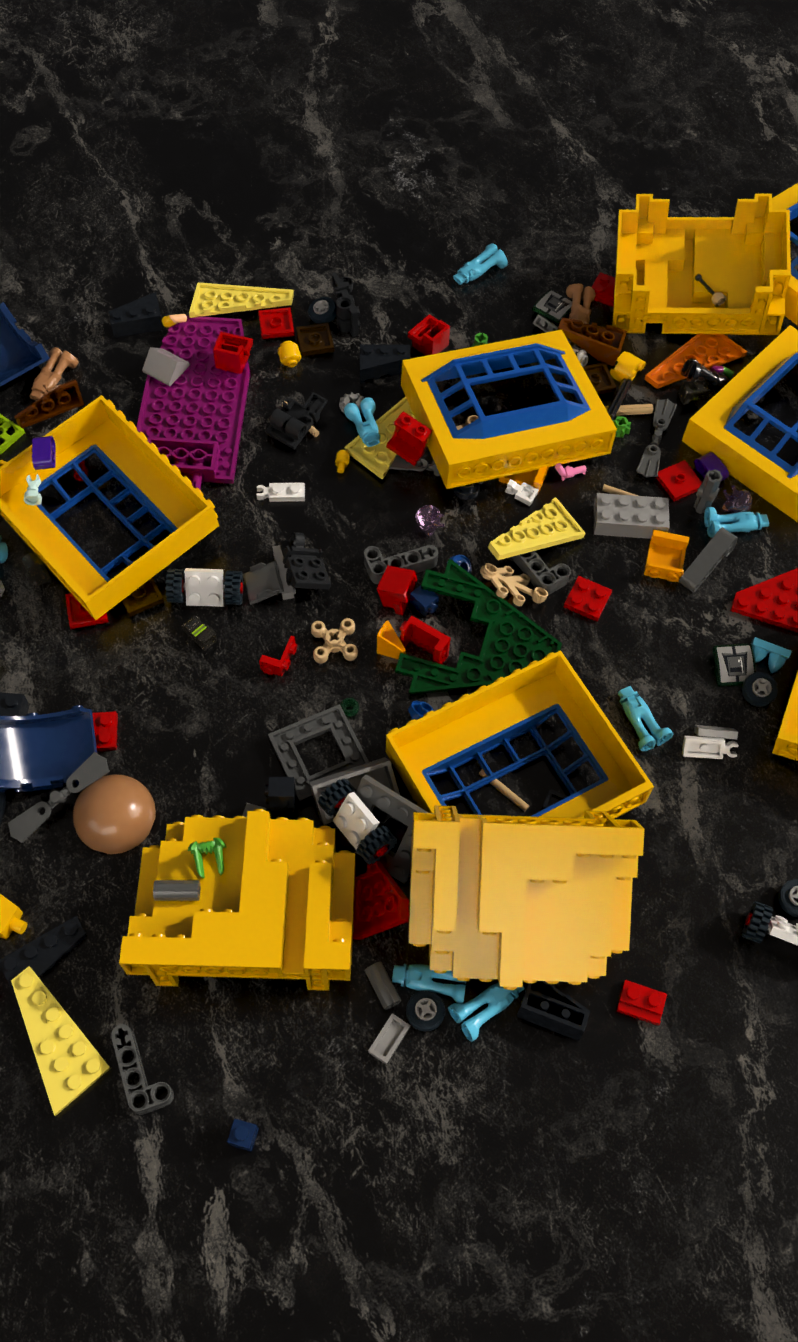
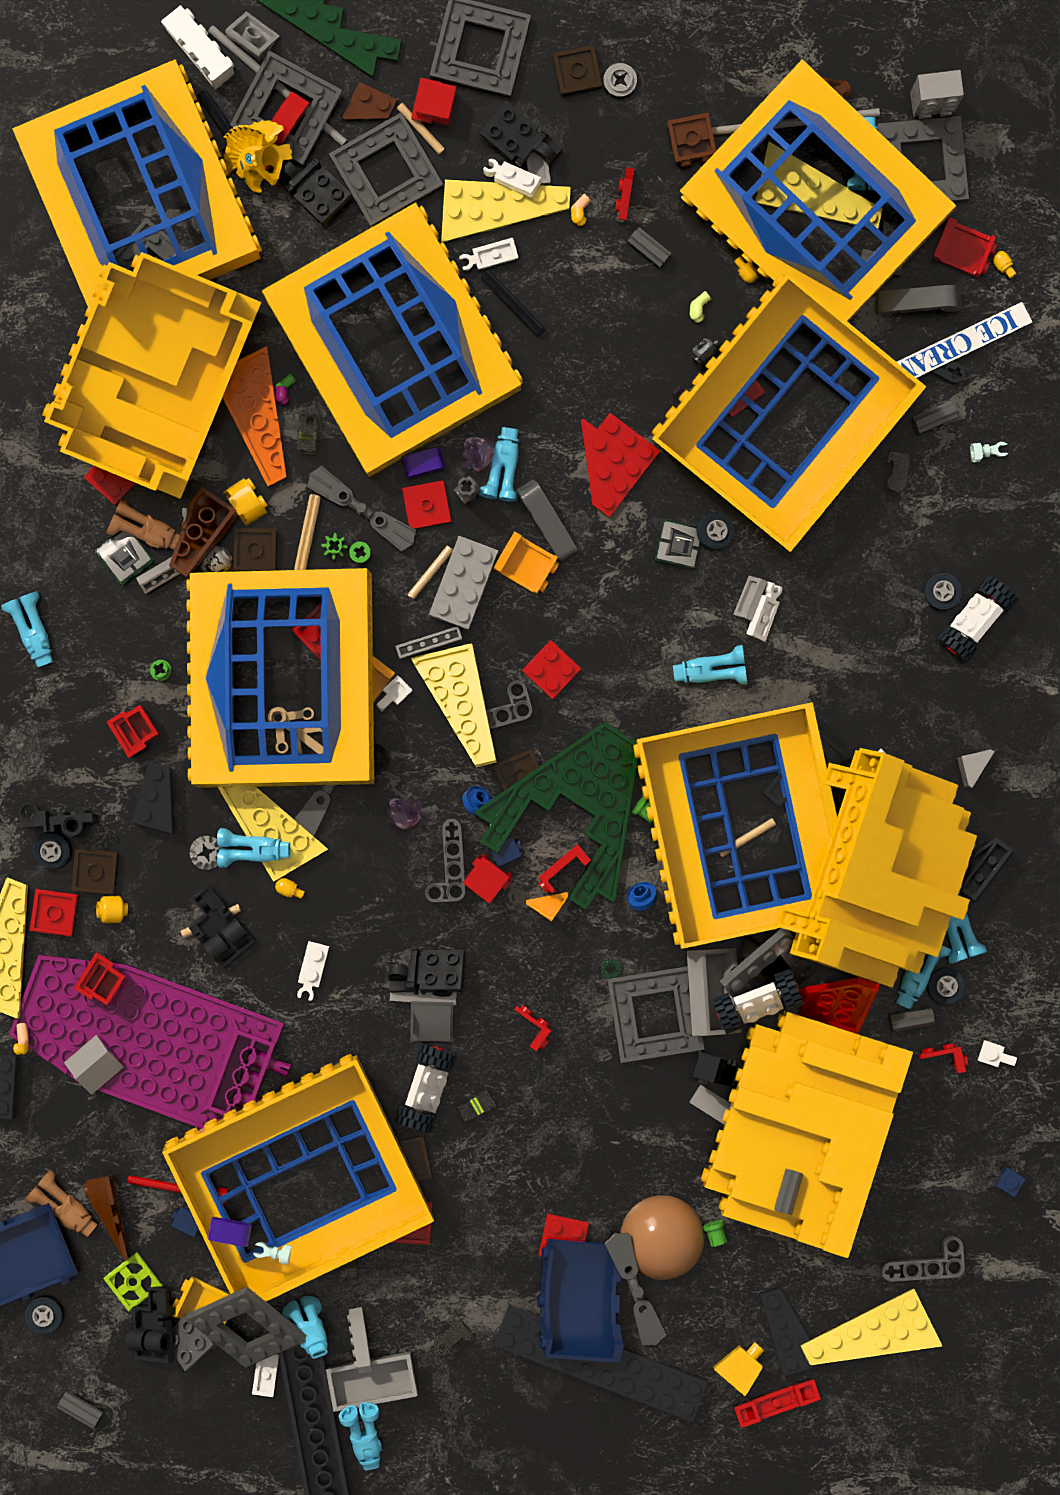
camera: 70 degrees left, 25 degrees up
(127, 858) = (715, 1232): none -> bright green bush
(205, 847) = (757, 1153): bright green piece -> none
(334, 640) = (519, 970): tan gear -> none
(355, 1045) = (959, 1059): none -> red bracket
(370, 1081) = (993, 1054): none -> white plate
(389, 1039) = (961, 1026): light grey tile -> none
(409, 438) = (299, 808): red panel -> none
(492, 573) = (517, 752): tan plant -> none
(568, 471) = (380, 629): bright pink piece -> none
(573, 505) = (428, 642): none -> light grey piece
(618, 398) = (297, 535): black axle -> none
(620, 445) = (358, 546): none -> bright green bush
(641, 1002) = (995, 781): red plate -> none
(651, 971) = (972, 766): none -> light grey slope
(693, 370) = (302, 403): black piece -> none
(717, 298) = (197, 363): tan hinge -> none
(777, 654) = (679, 493): medium azure tile -> none

